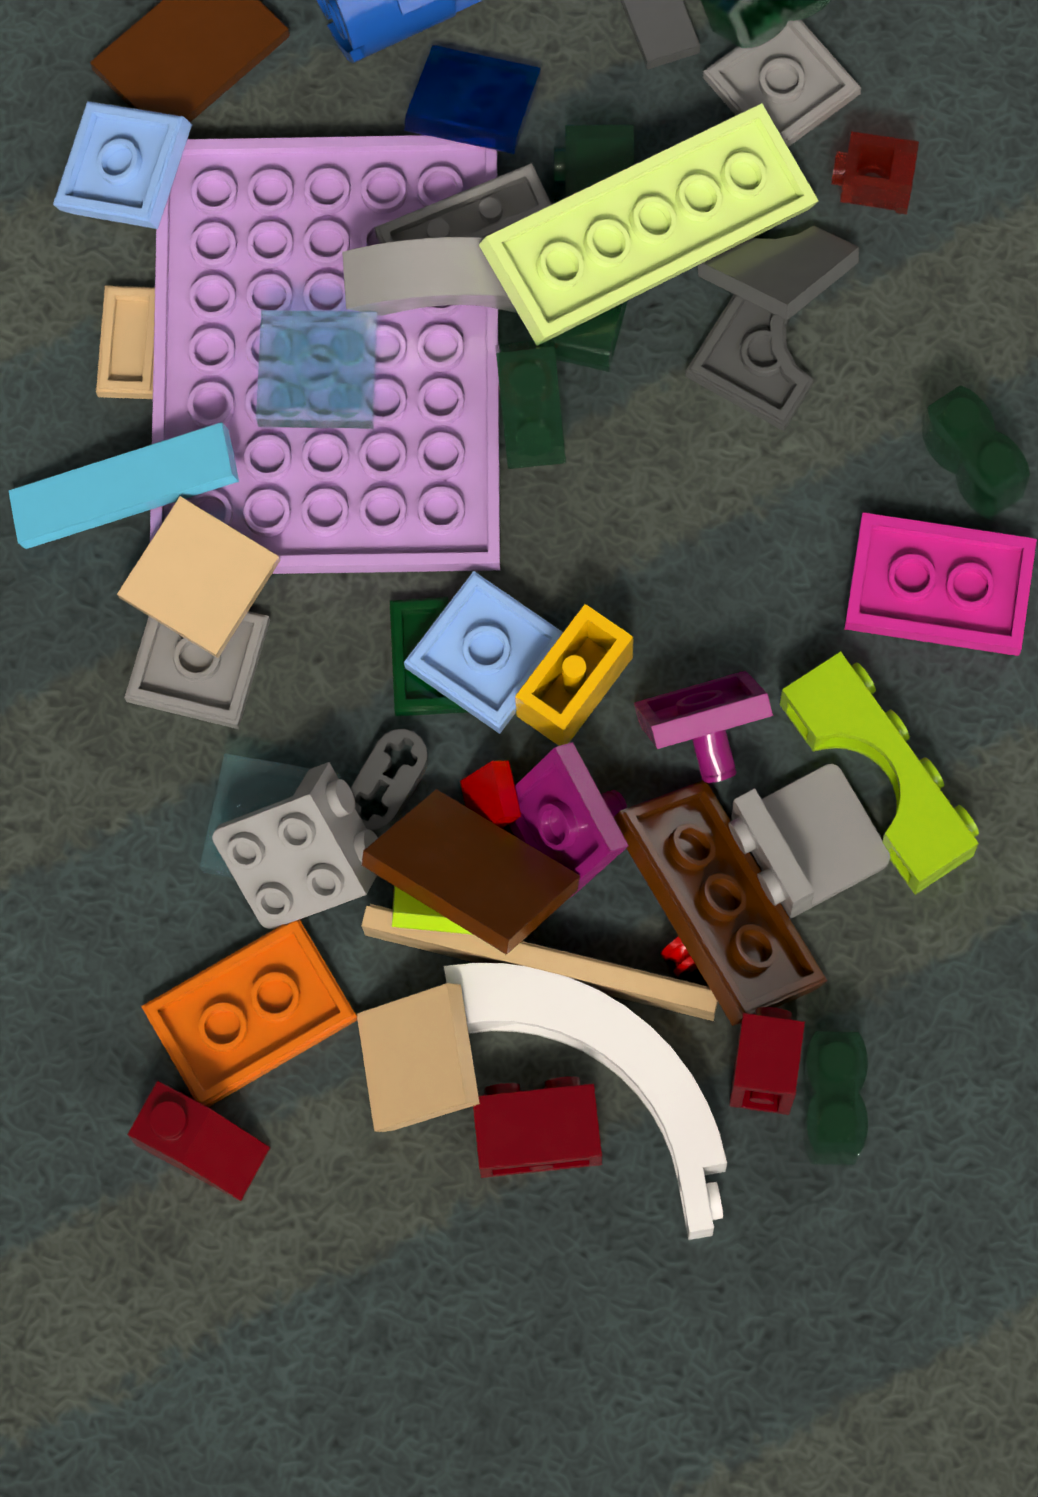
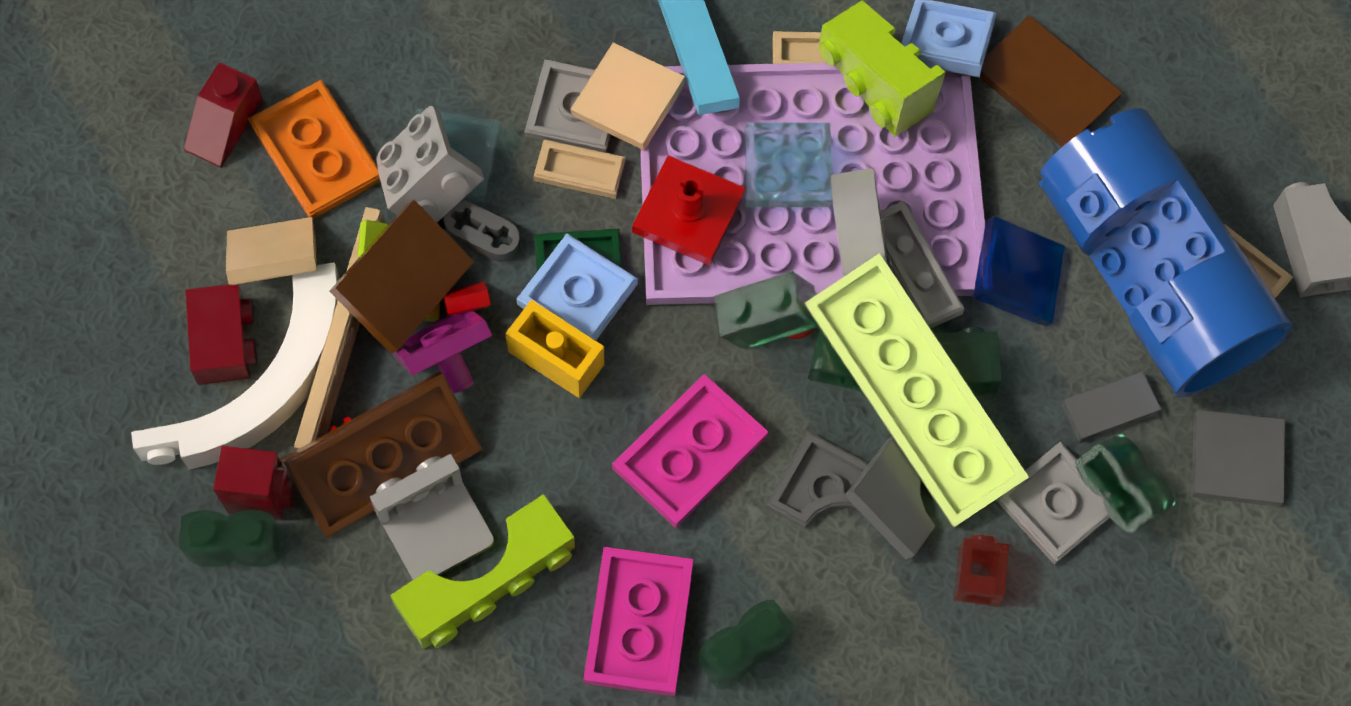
camera: 80 degrees right, 5 degrees down
(183, 242) = (880, 68): none -> lime wedge
(294, 654) = (579, 169): none -> tan tile
(375, 502) = (688, 210): none -> red tile
(704, 715) = (524, 439): magenta tile -> none
(711, 516) = (690, 450): none -> dark pink plate

